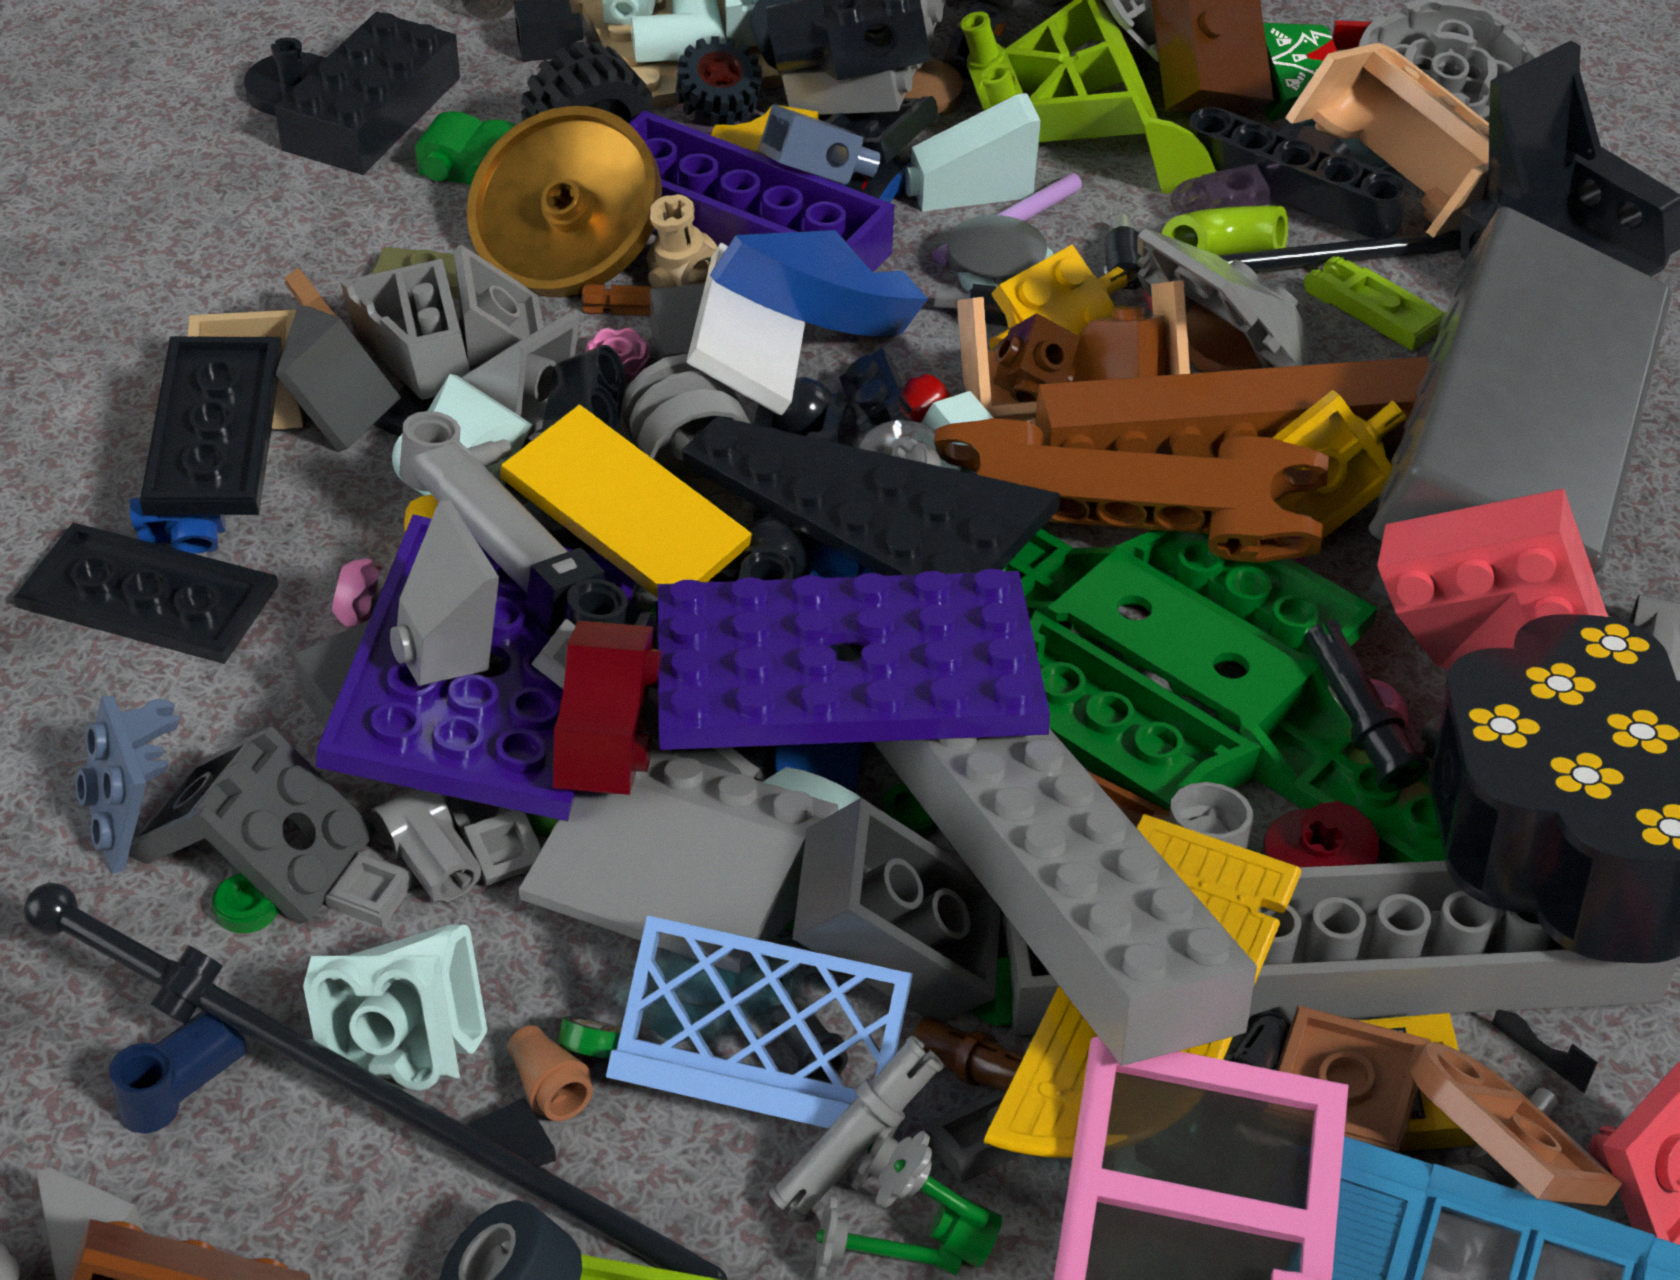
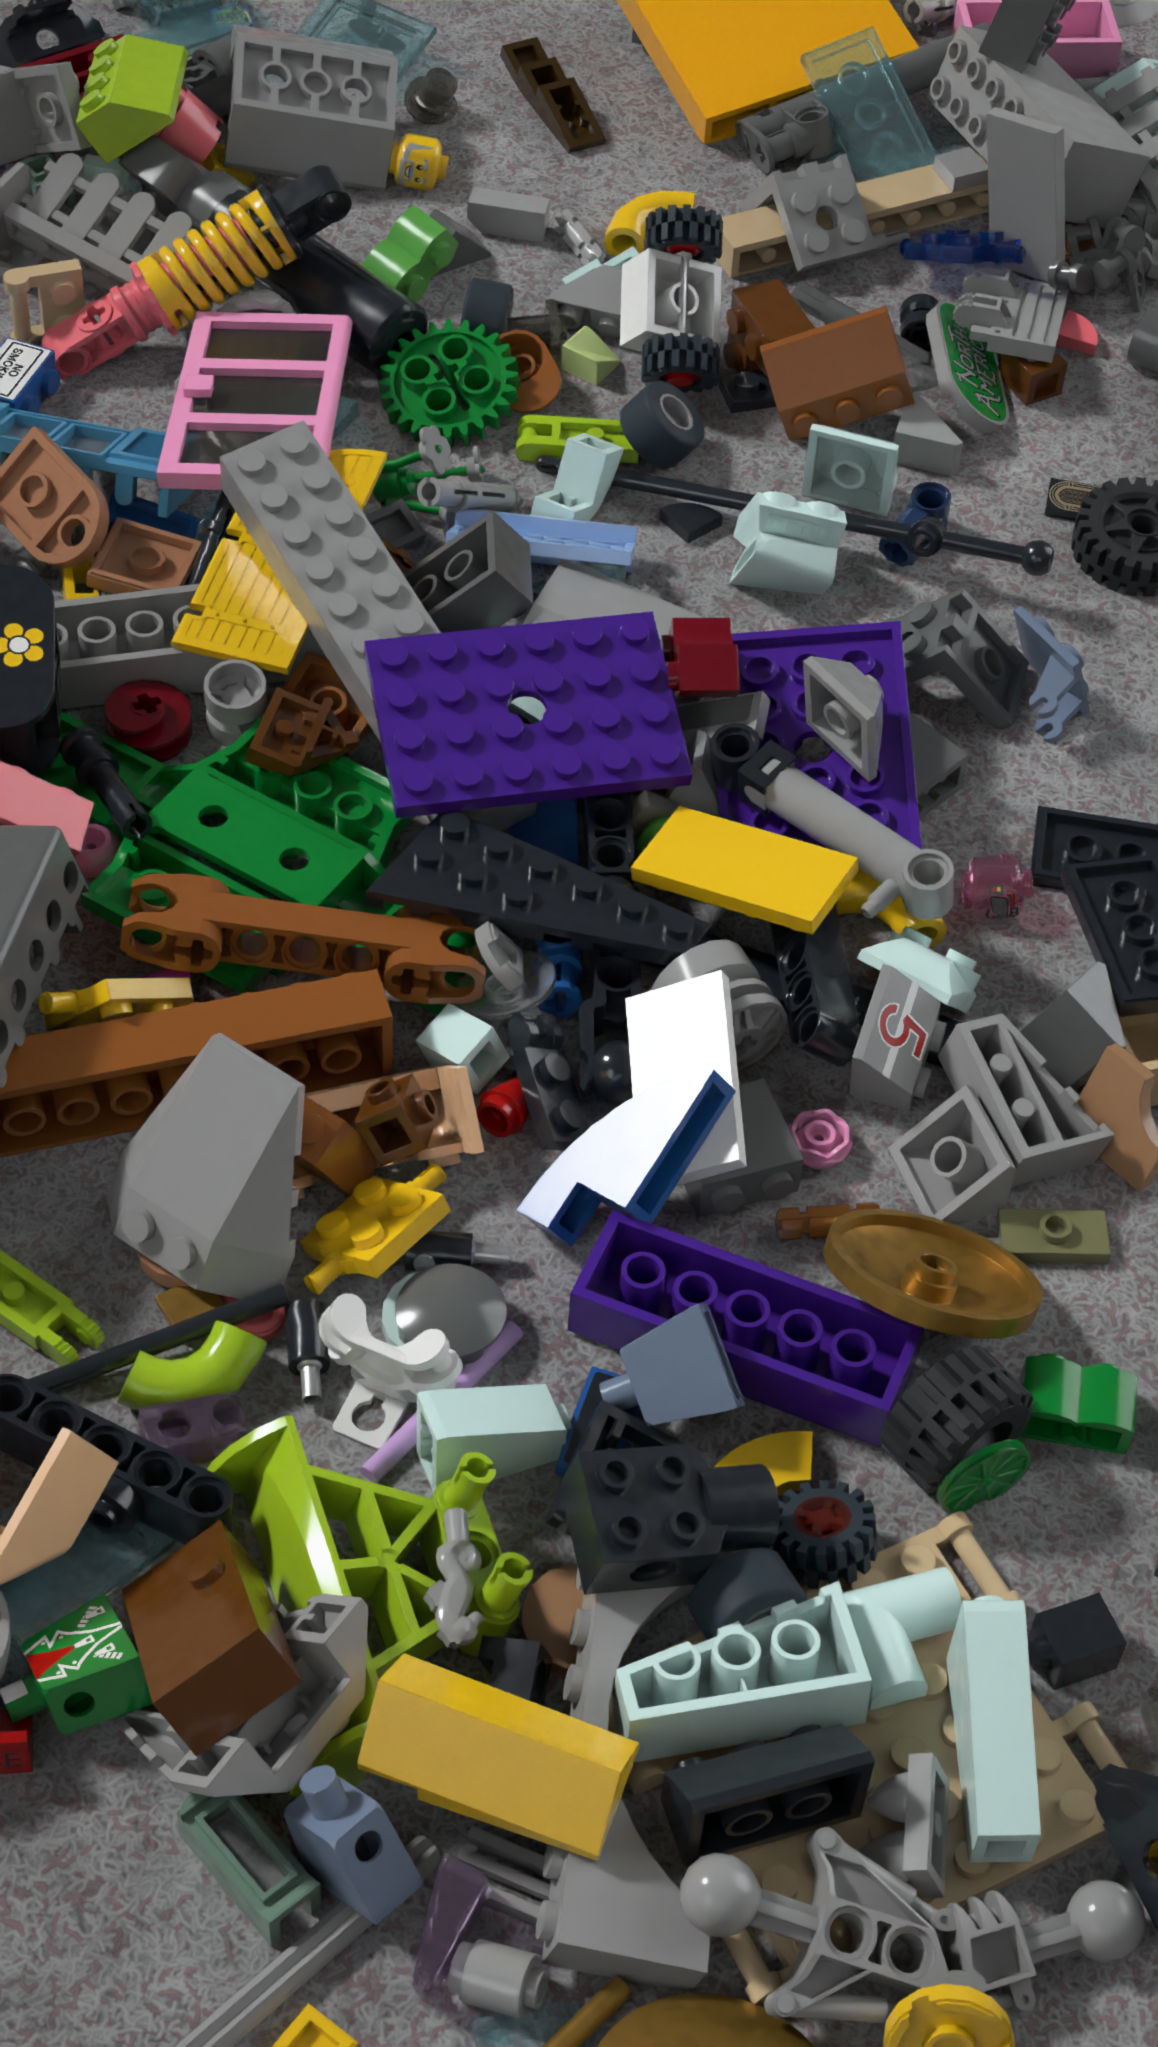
camera: 170 degrees right, 5 degrees up
(238, 1147) = (850, 469): none -> light aqua slope
(322, 548) = (996, 886): none -> clear pink head
(355, 591) = (953, 841): bright pink plate -> none
(551, 1076) = (675, 543): nougat cone -> none
(588, 1036) = (655, 564): green tile -> none
(676, 1192) = (582, 479): none -> light aqua brick
(679, 250) = (793, 1241): tan connector -> none
(1019, 34) = (451, 1598): none -> light grey animal
(1065, 190) = (382, 1369): none -> white piece
(1131, 750) = (298, 735): none -> reddish brown slope

